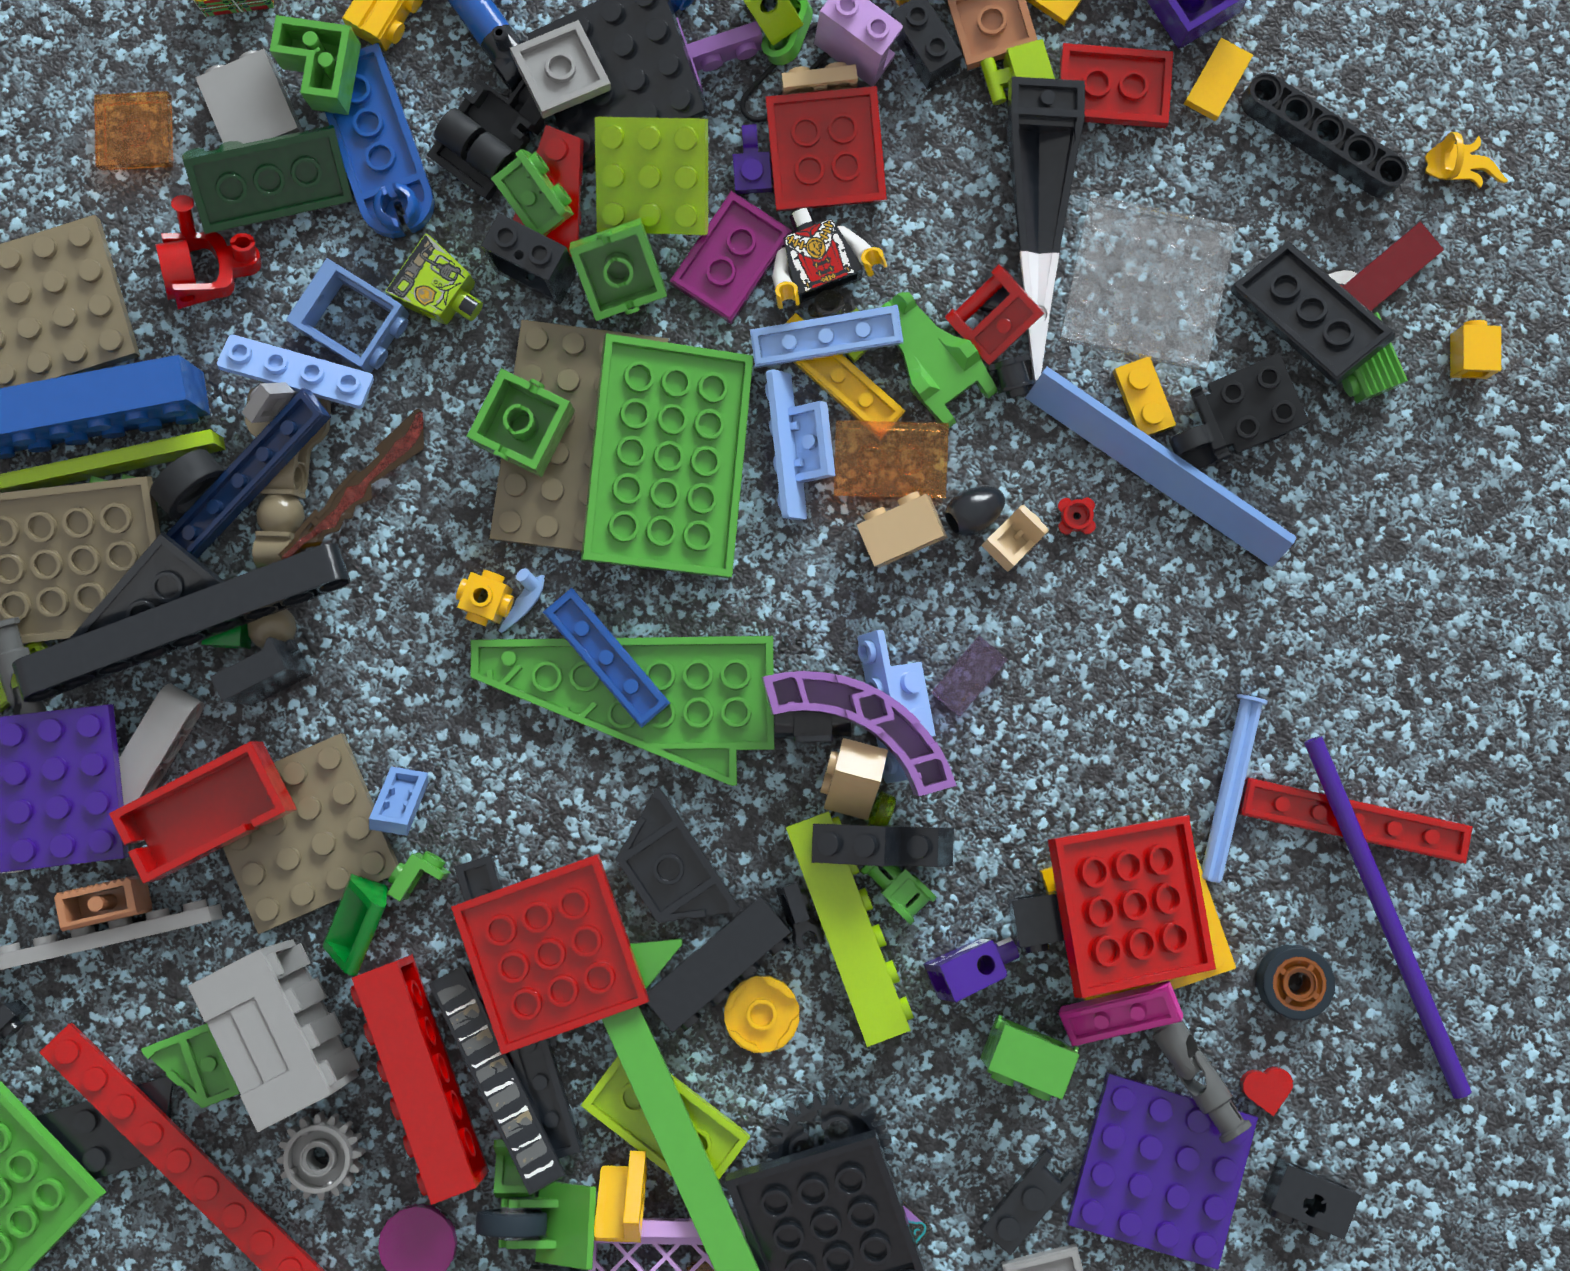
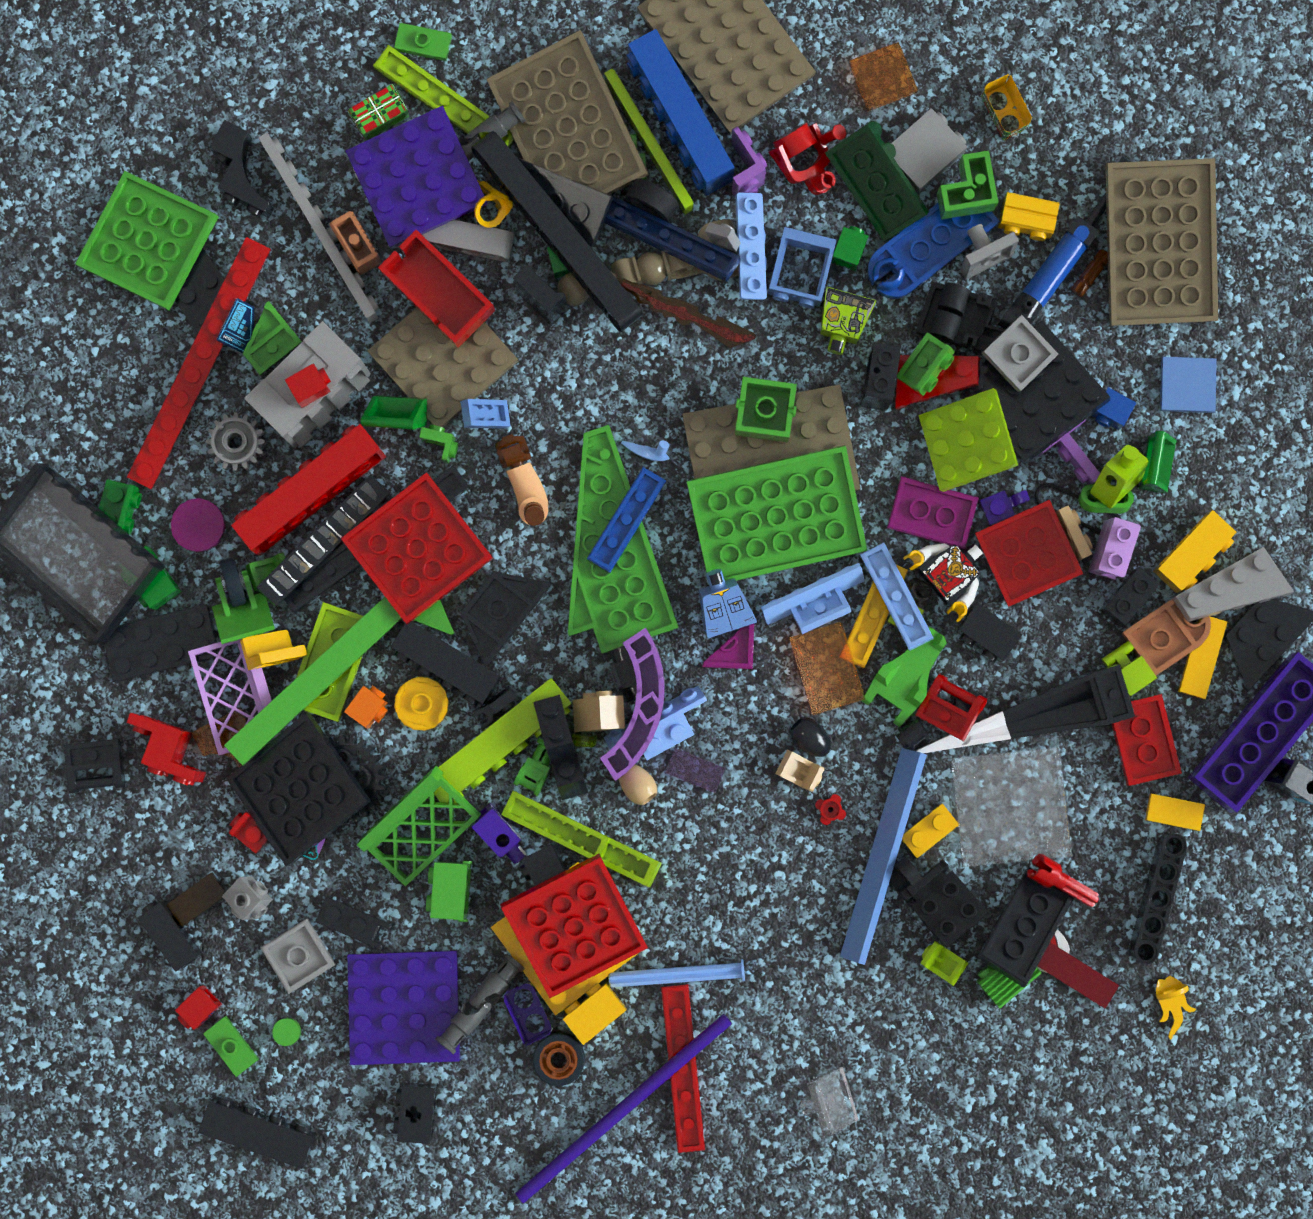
camera: 70 degrees right, 0 degrees up
(113, 685) = (502, 202): none -> yellow piece
(160, 1103) = (238, 326): none -> sticker
(181, 333) = (754, 176): none -> medium lavender bracket
(269, 1035) = (308, 384): none -> red brick
(345, 246) = (850, 248): none -> green brick
(413, 68) = (987, 253): none -> light grey tile
(498, 601) = (642, 434): yellow brick -> none
(506, 777) = (525, 482): none -> piece
(618, 270) = (894, 439): bright green brick -> none
(742, 1089) = (367, 706): none -> orange brick
(764, 566) = (723, 605): none -> medium blue torso
(828, 570) = (735, 652): none -> magenta tile
(897, 1081) = (407, 806): none -> bright green fence
(902, 529) = (779, 691): tan brick -> none
(914, 235) = (988, 634): none -> black brick
(968, 756) = (638, 785): none -> tan animal
(1011, 857) = (581, 838): none -> lime slope
(1121, 1013) = (499, 944): dark pink tile -> none
(1230, 1020) = (524, 1013): none -> dark purple piece
(1249, 915) = (594, 1013): none -> yellow brick
(1254, 257) = (1051, 875): none -> red piece
(1267, 1088) = (480, 1062): red tile -> none
(1324, 434) = (943, 962): none -> lime bracket
(1463, 639) = (830, 1102): none -> clear tile
(1475, 350) = (1039, 1051): yellow brick -> none

